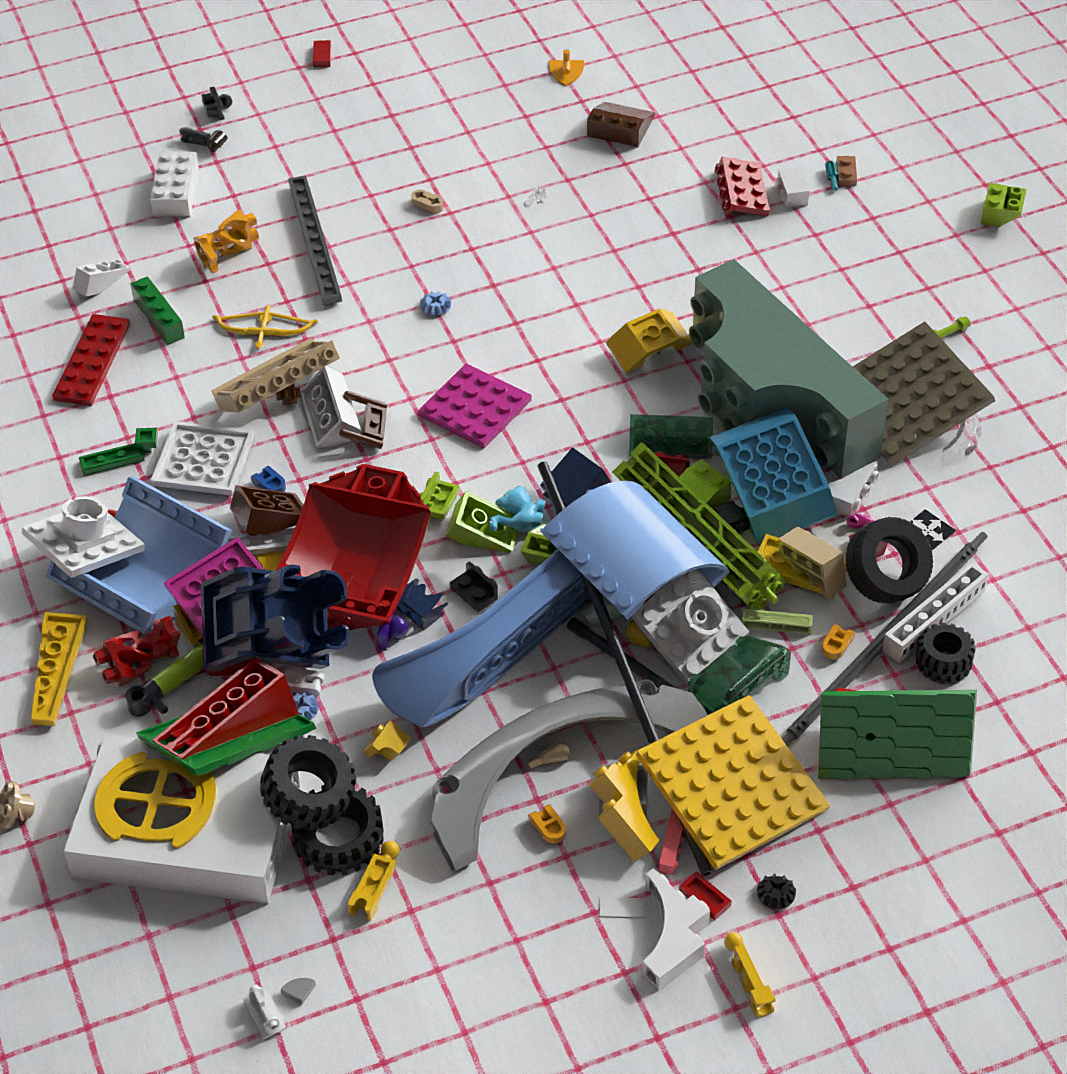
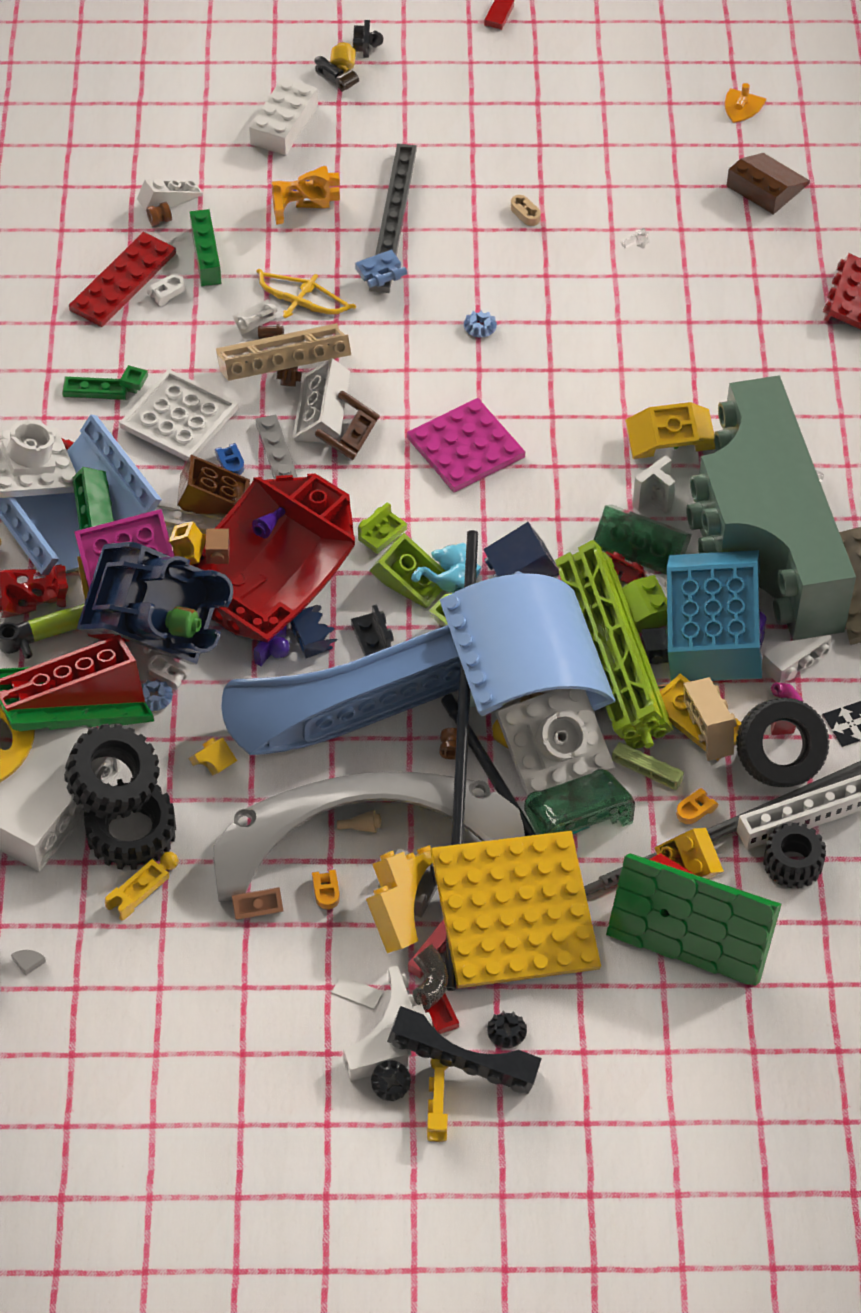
camera: 20 degrees right, 5 degrees up
(100, 294) = (159, 214): none -> dark orange wheel
(141, 351) = (171, 284): none -> white plate
(161, 551) = (92, 497): none -> green brick
(203, 121) = (343, 56): none -> yellow head
(232, 354) = (255, 316): none -> white hinge
(248, 364) = (270, 331): none -> reddish brown pin
(273, 555) = (187, 542): none -> yellow brick
(303, 553) = (217, 546): none -> medium nougat brick
(304, 457) = (275, 446): none -> light grey plate
(308, 628) = (183, 622): none -> bright green head
(327, 282) = (380, 269): none -> medium blue plate
(337, 523) = (264, 525): none -> dark purple cone
(492, 859) = (257, 903): none -> nougat plate
(596, 659) = (448, 745): none -> dark orange wheel
(663, 387) = (655, 486): none -> white bracket
(690, 982) = (387, 1069): none -> black gear
(691, 865) = (435, 978): none -> clear smoke cylinder
(705, 922) = (415, 1033): none -> black arch
(859, 676) = (694, 852): none -> yellow slope

